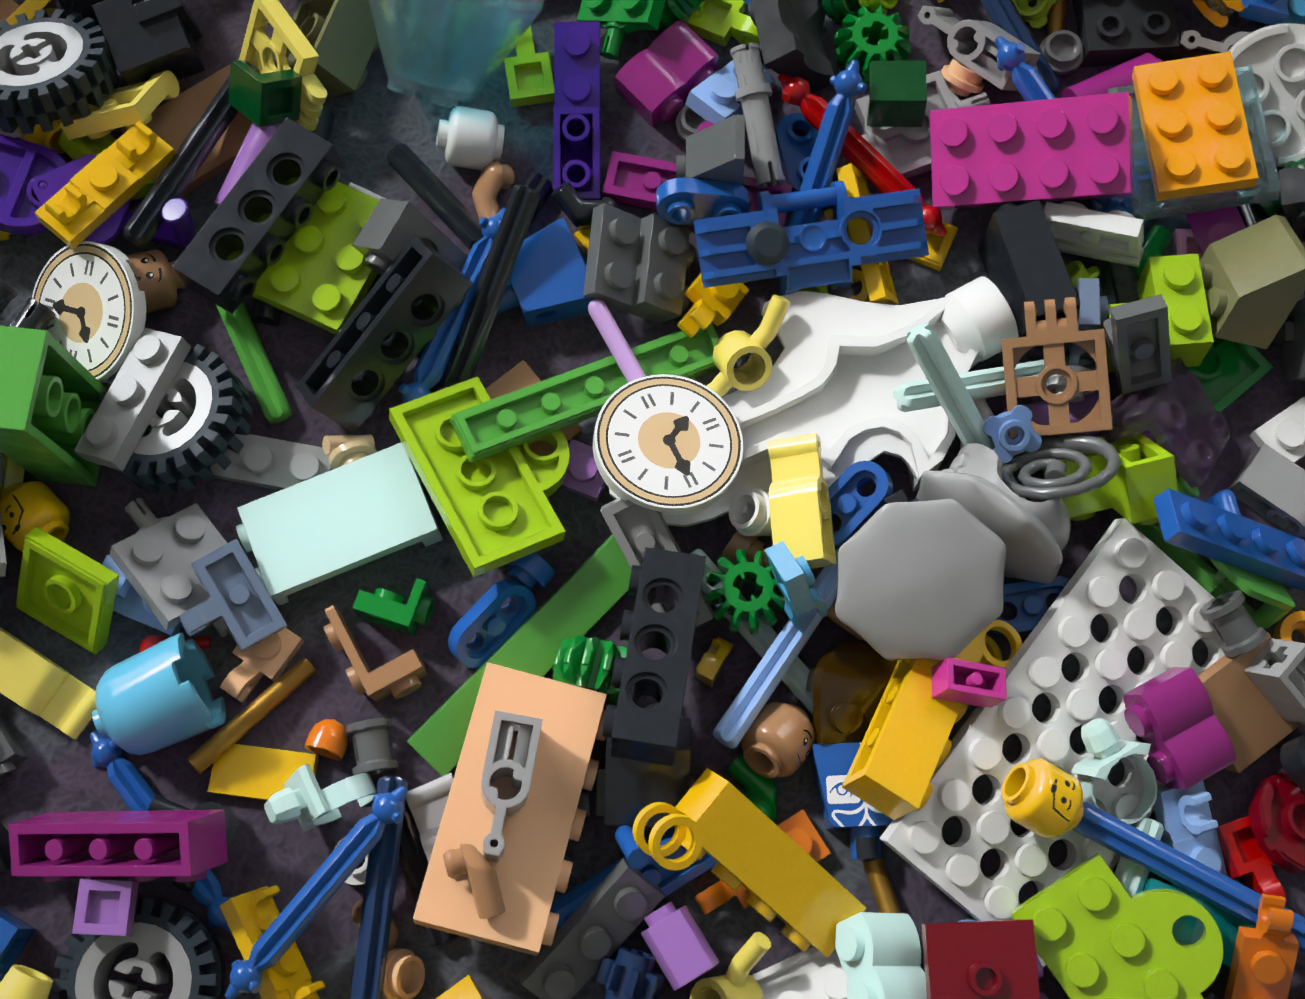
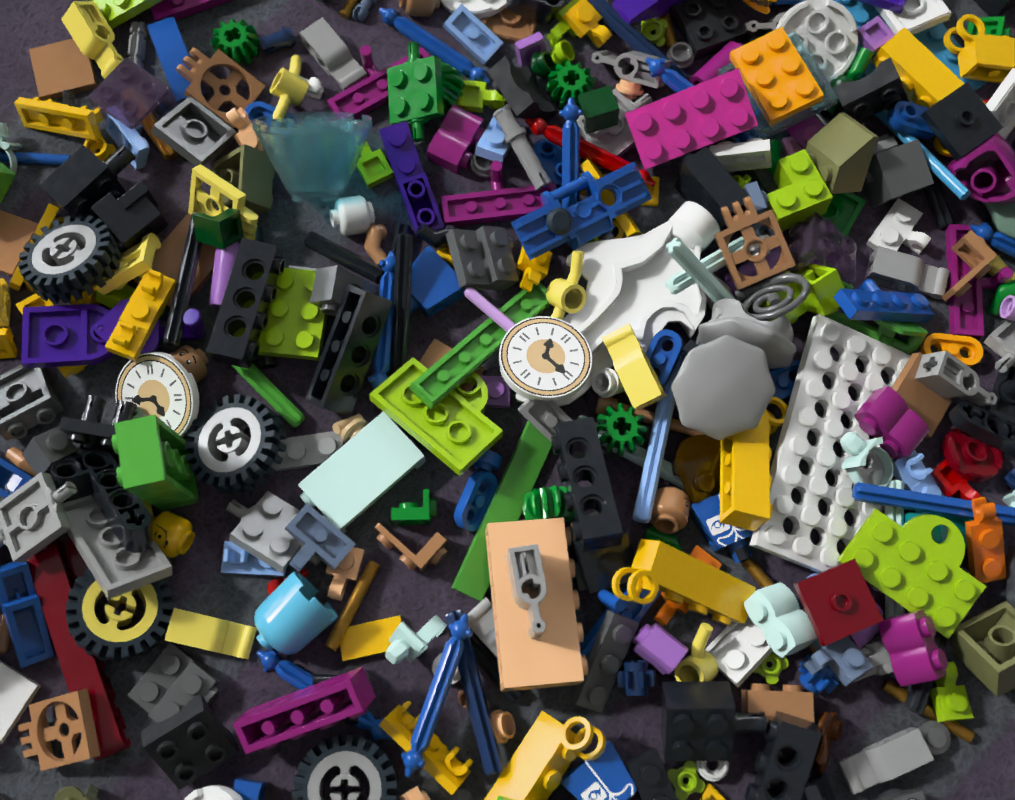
camera: 25 degrees left, 0 degrees up
(66, 590) = (210, 570): lime plate -> none
(105, 907) = (312, 751): medium lavender plate -> none
(132, 399) = (209, 440): light grey plate -> none
(328, 736) = (403, 601): orange hinge -> none
(372, 746) = (432, 598): dark grey bush -> none
(481, 876) = (534, 646): medium nougat arm -> none
(691, 199) = (506, 209): blue plate -> none
(713, 661) = (615, 476): yellow tile -> none
(715, 152) = (508, 183): dark grey slope -> none
(794, 579) = (650, 413): dark azure plate -> none
(968, 683) = (769, 437): dark pink piece -> none
(999, 426) = (732, 284): medium blue plate -> none
(1043, 798) = (834, 488): yellow head -> none
(1140, 343) = (794, 211): dark grey slope -> none
(1233, 623) = (900, 353): dark grey bush -> none

